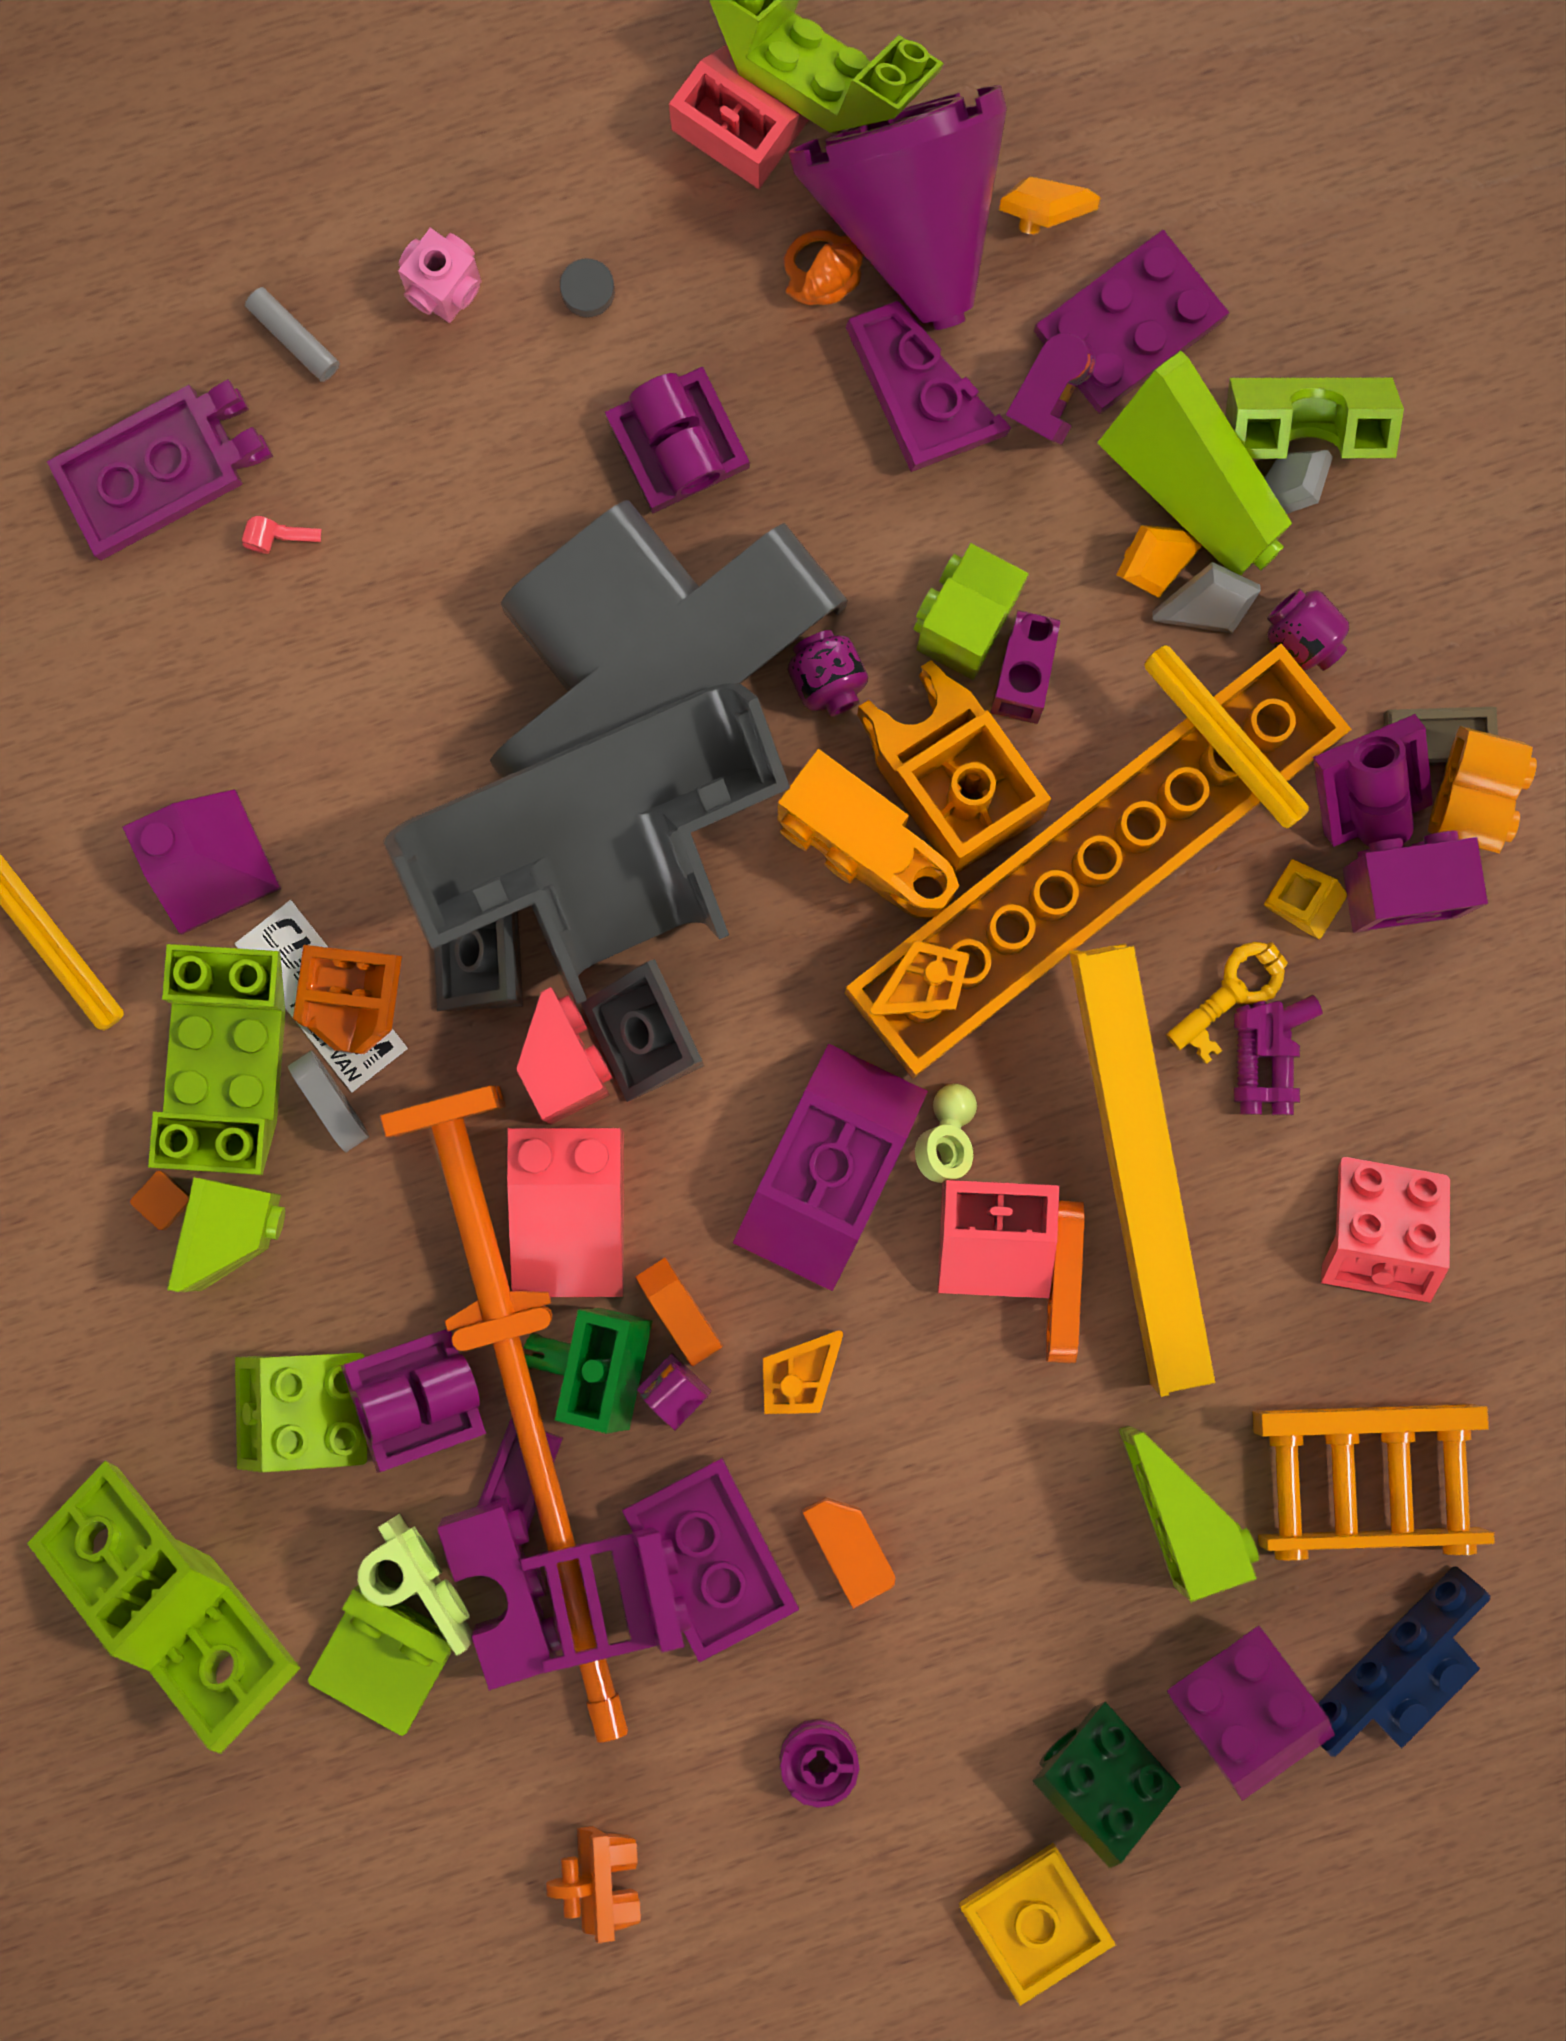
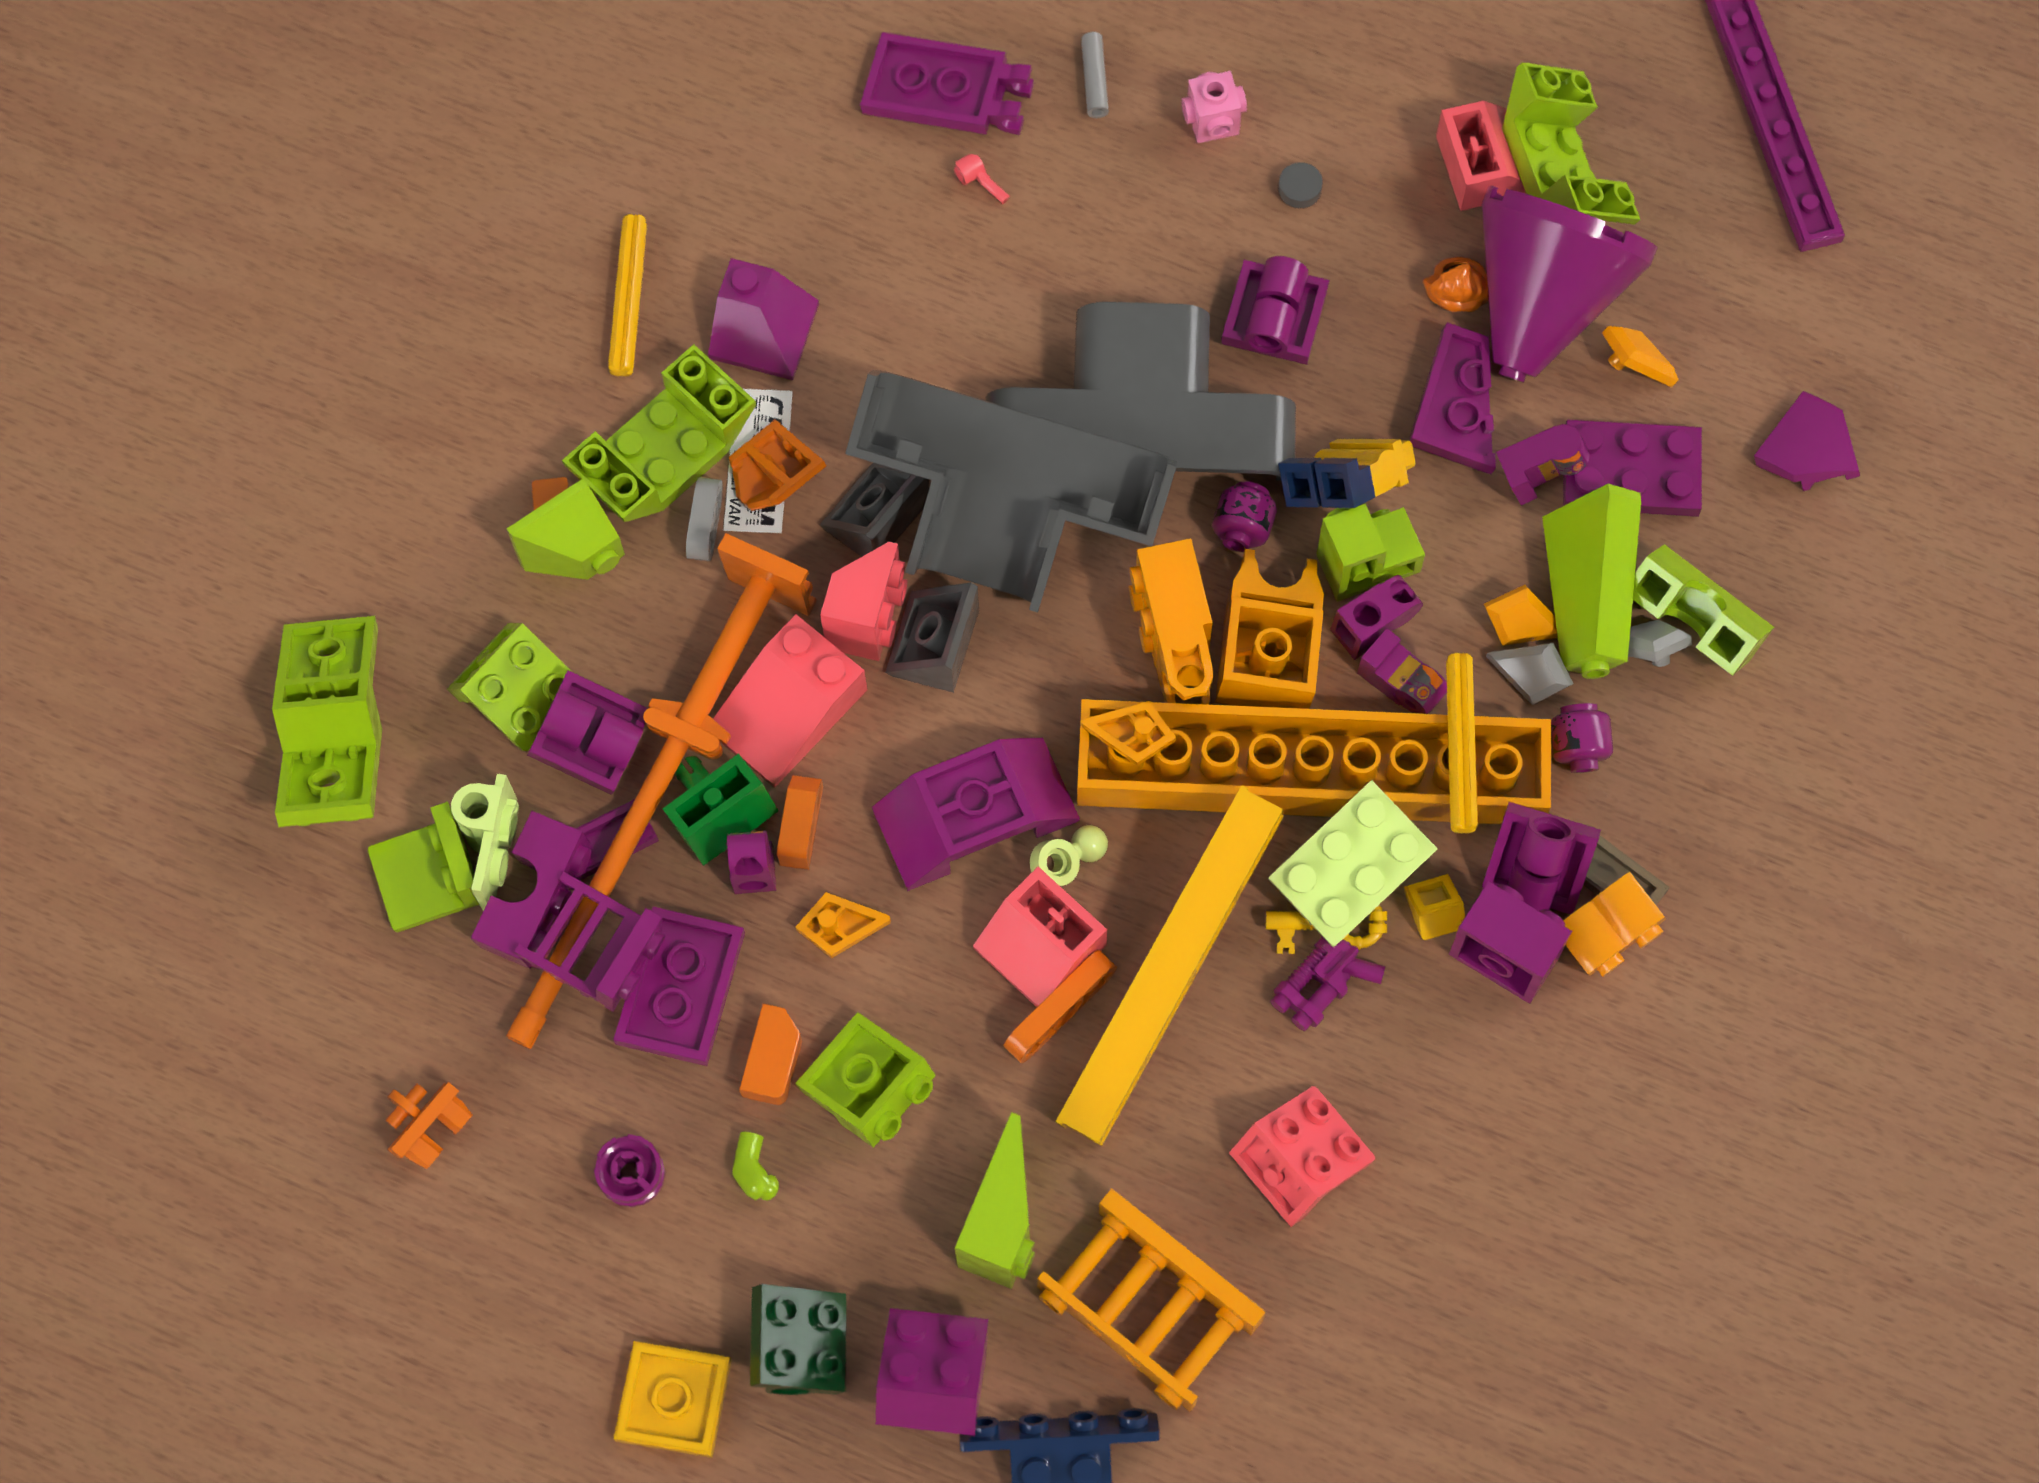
camera: 45 degrees right, 15 degrees down
(891, 551) = (1346, 473): none -> hips
(924, 1670) = (748, 1170): none -> lime arm
(956, 1500) = (867, 1080): none -> lime plate
(1099, 705) = (1401, 675): none -> magenta leg
(1219, 932) = (1352, 863): none -> yellowish green plate
(1272, 163) = (1809, 444): none -> magenta slope

